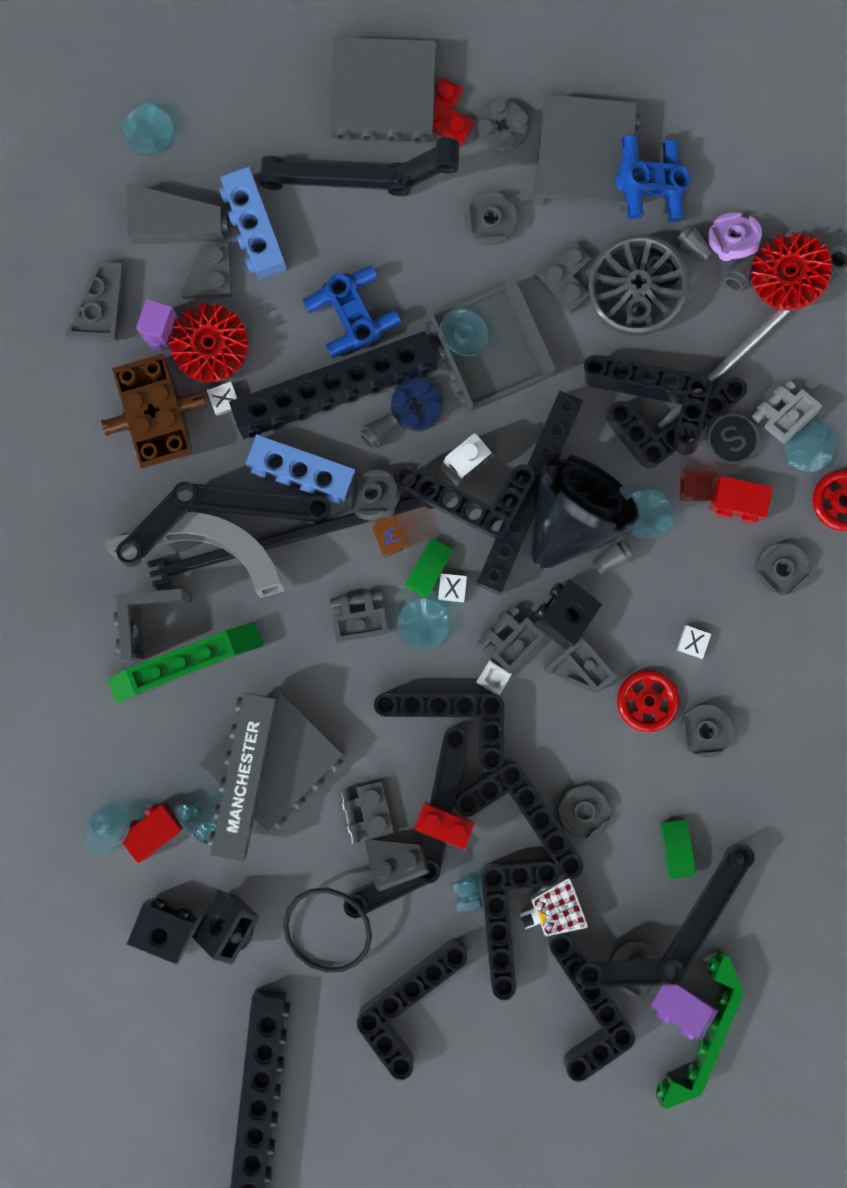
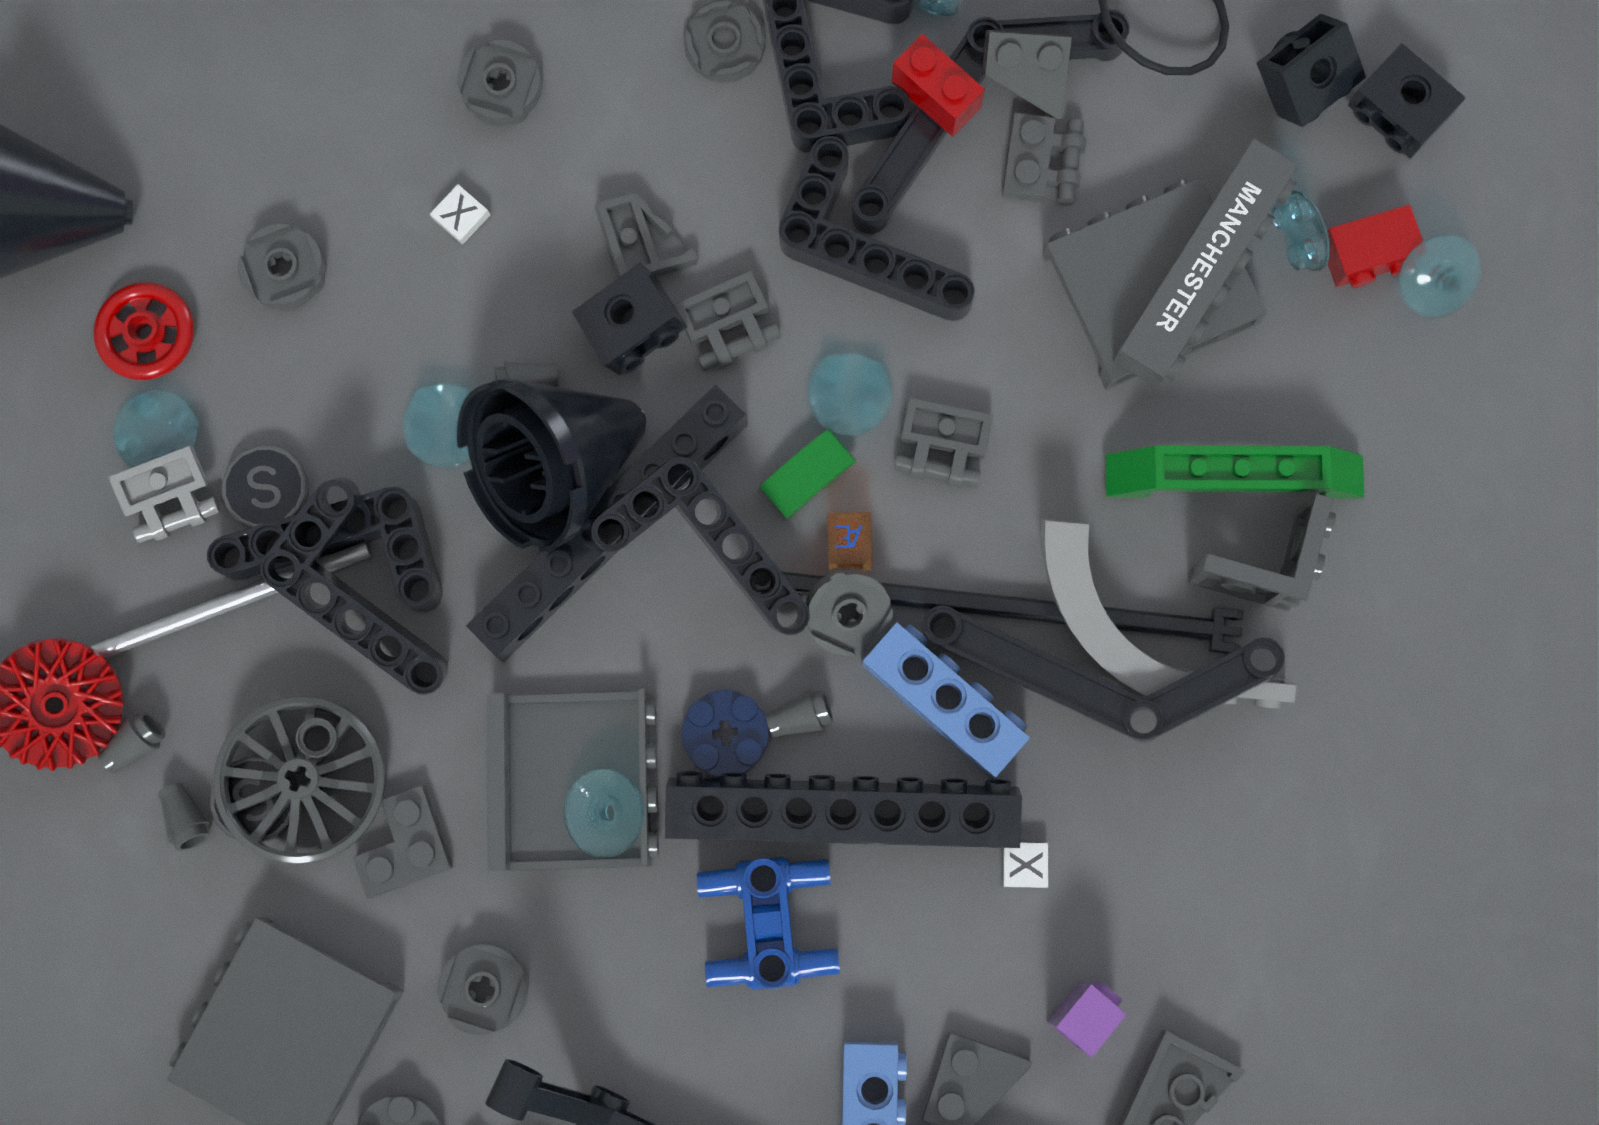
camera: 150 degrees left, 5 degrees down
(146, 388) = (1152, 926): reddish brown slope -> none
(197, 329) = (1049, 967): red wheel -> none
(452, 588) = (784, 431): white tile -> none
(466, 459) = (680, 612): white torso -> none
(493, 678) = (778, 276): white tile -> none
(635, 718) = (550, 188): red plate -> none
(654, 179) = (225, 947): blue piece -> none
(696, 485) = (352, 438): clear red panel -> none
(730, 247) = (127, 779): lavender plate -> none
(740, 499) = (295, 390): red brick -> none

